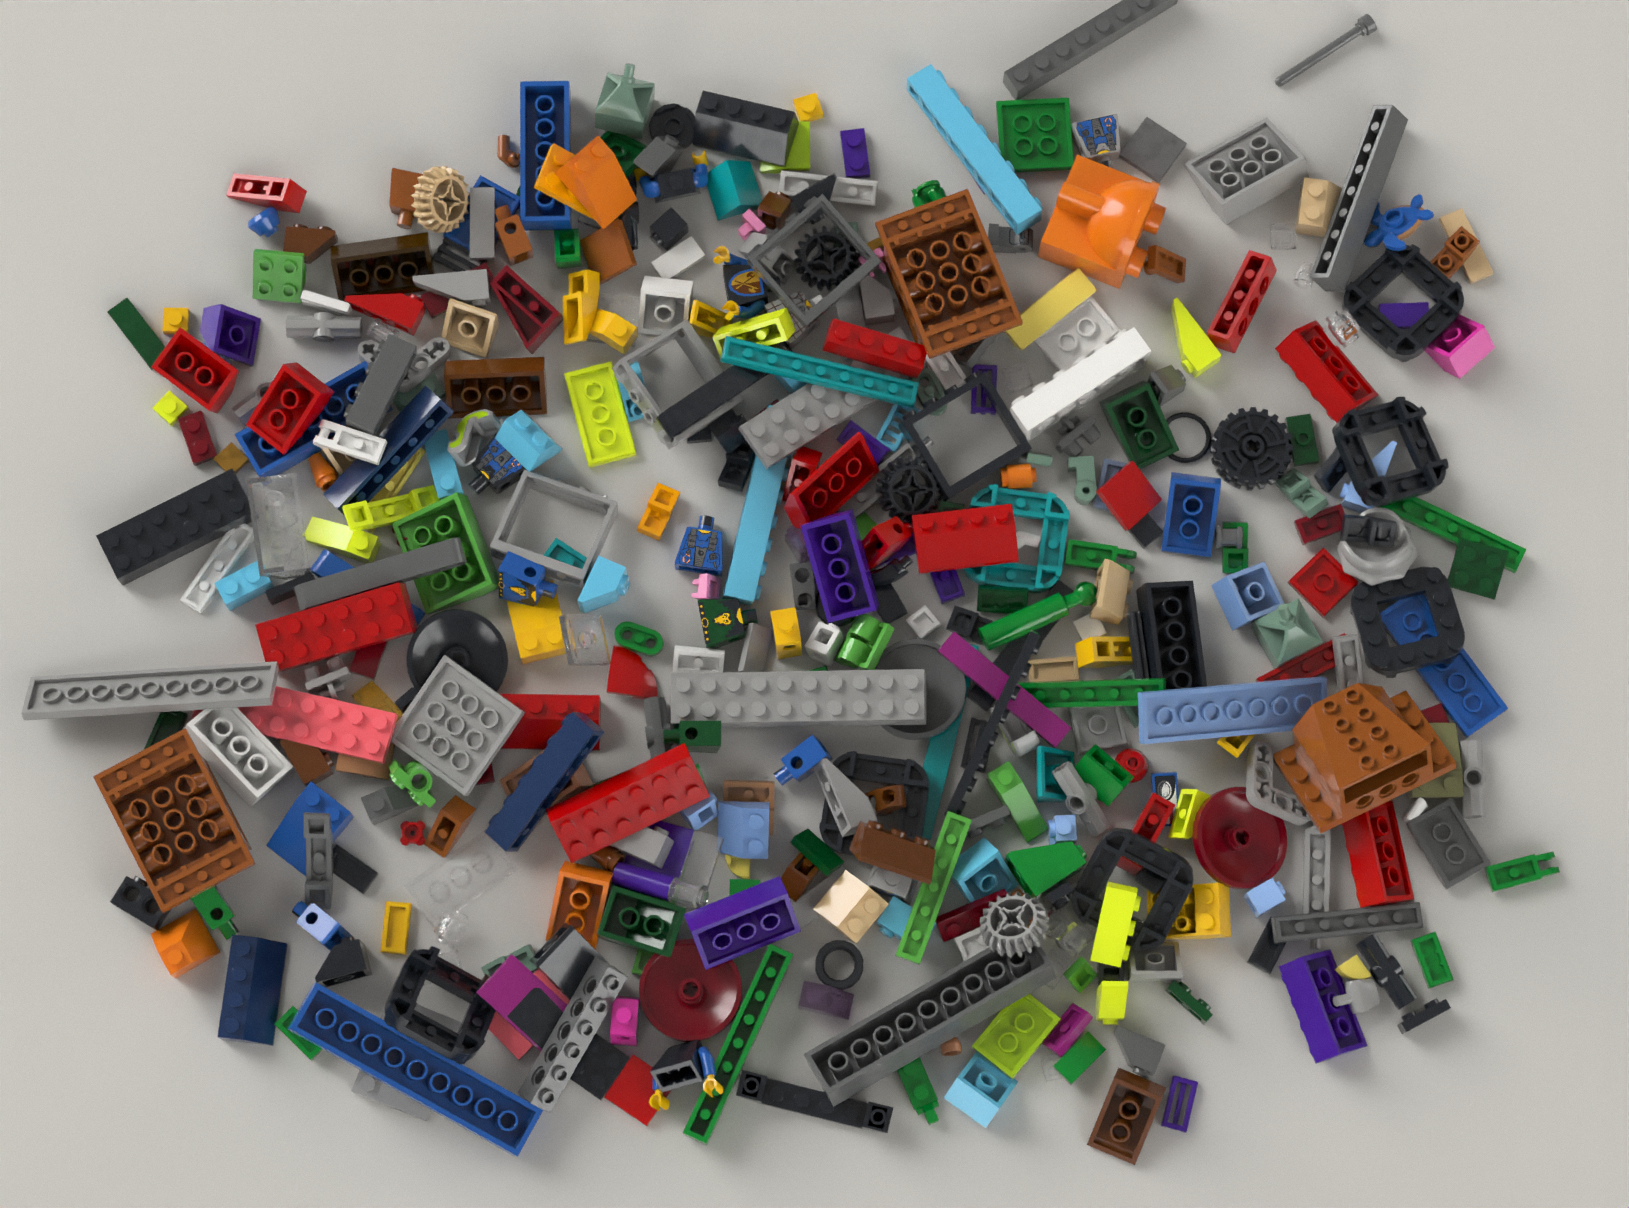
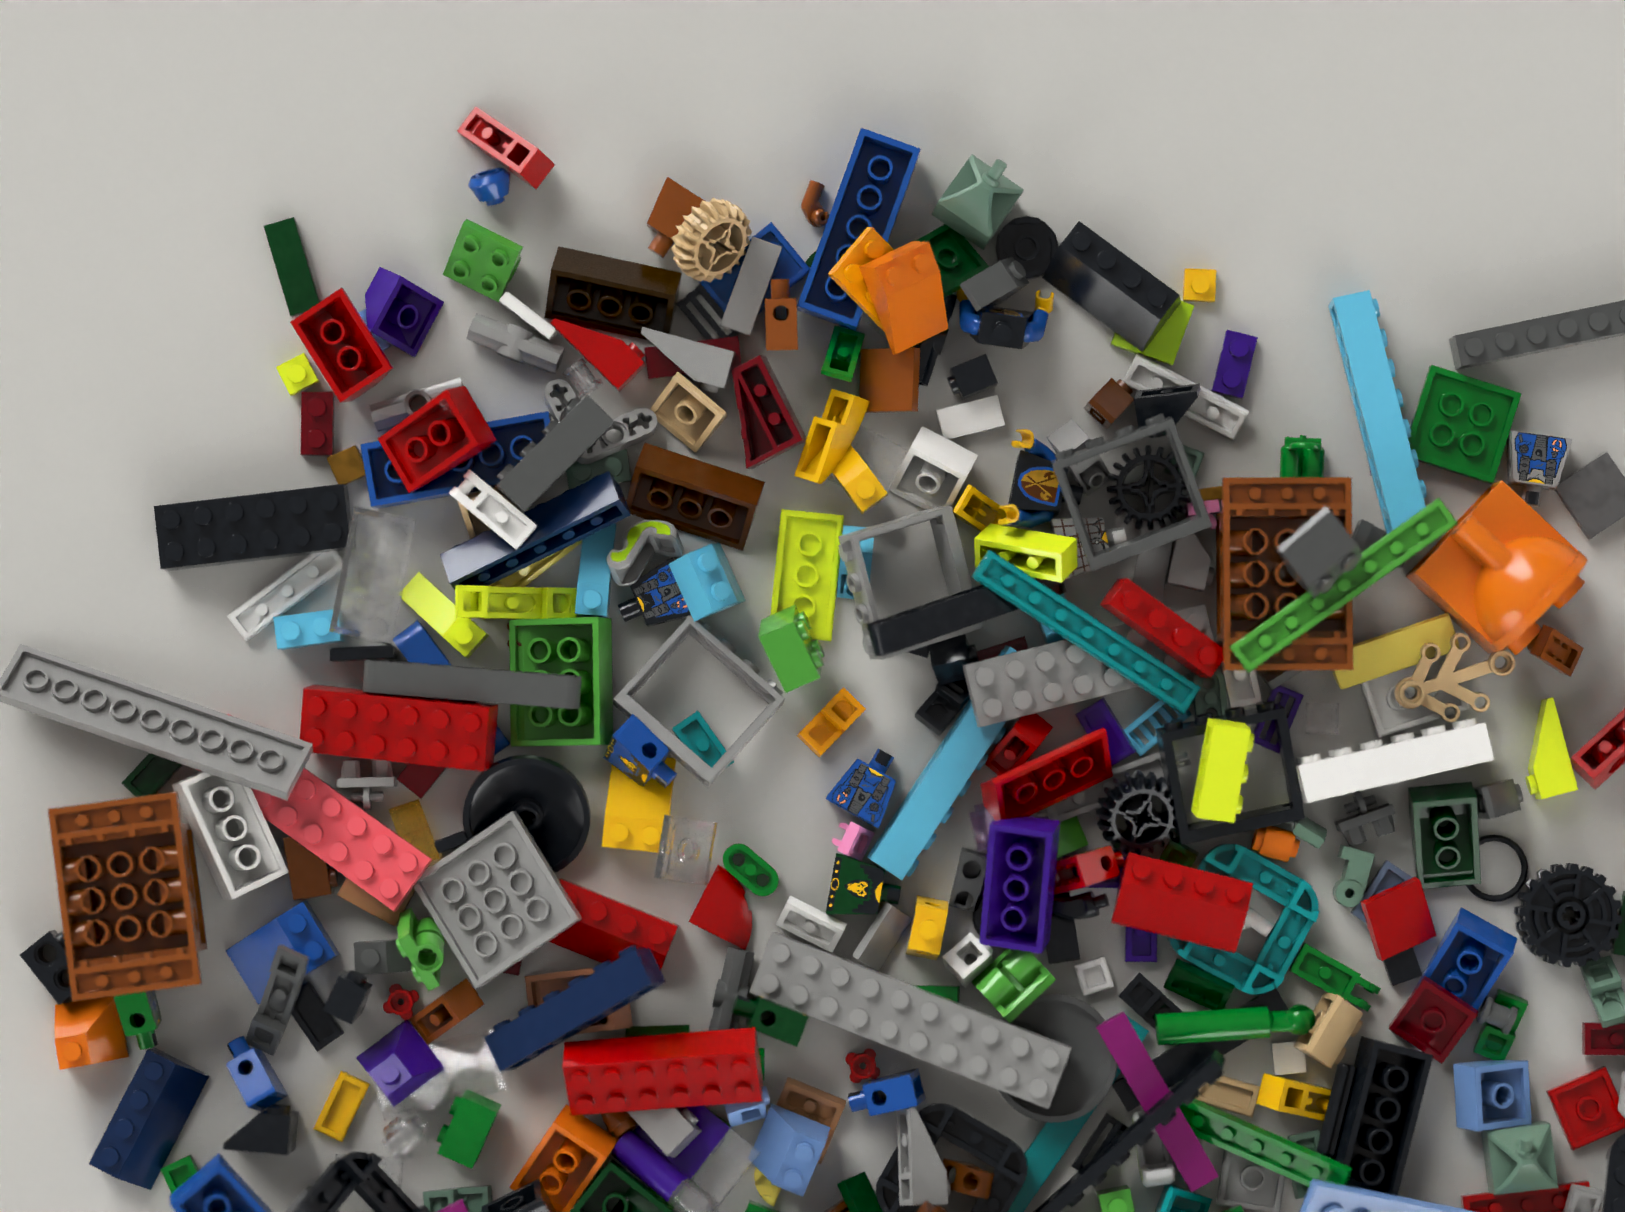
camera: 20 degrees right, 10 degrees up
(175, 318) = (342, 267): yellow plate -> none
(309, 241) = (532, 230): reddish brown slope -> none
(322, 471) = (450, 524): orange cone -> none
(371, 836) = (348, 996): none -> black slope
(428, 877) = (400, 1063): none -> dark purple slope
(497, 905) = (469, 1128): none -> green brick
(604, 585) = (732, 793): medium azure slope -> none
(608, 464) = (791, 648): none -> bright green brick
(733, 188) = (1070, 355): teal slope -> none
(751, 223) = (1075, 410): bright pink tile -> none
(777, 743) = (869, 1071): none -> red plate
(956, 430) = (1222, 770): none -> neon yellow brick
(964, 243) = (1319, 553): none -> dark grey slope
(991, 265) = (1372, 566): none -> bright green tile
(1096, 313) = (1448, 679): none -> tan plant
(1183, 558) = (1433, 1019): none -> dark red plate

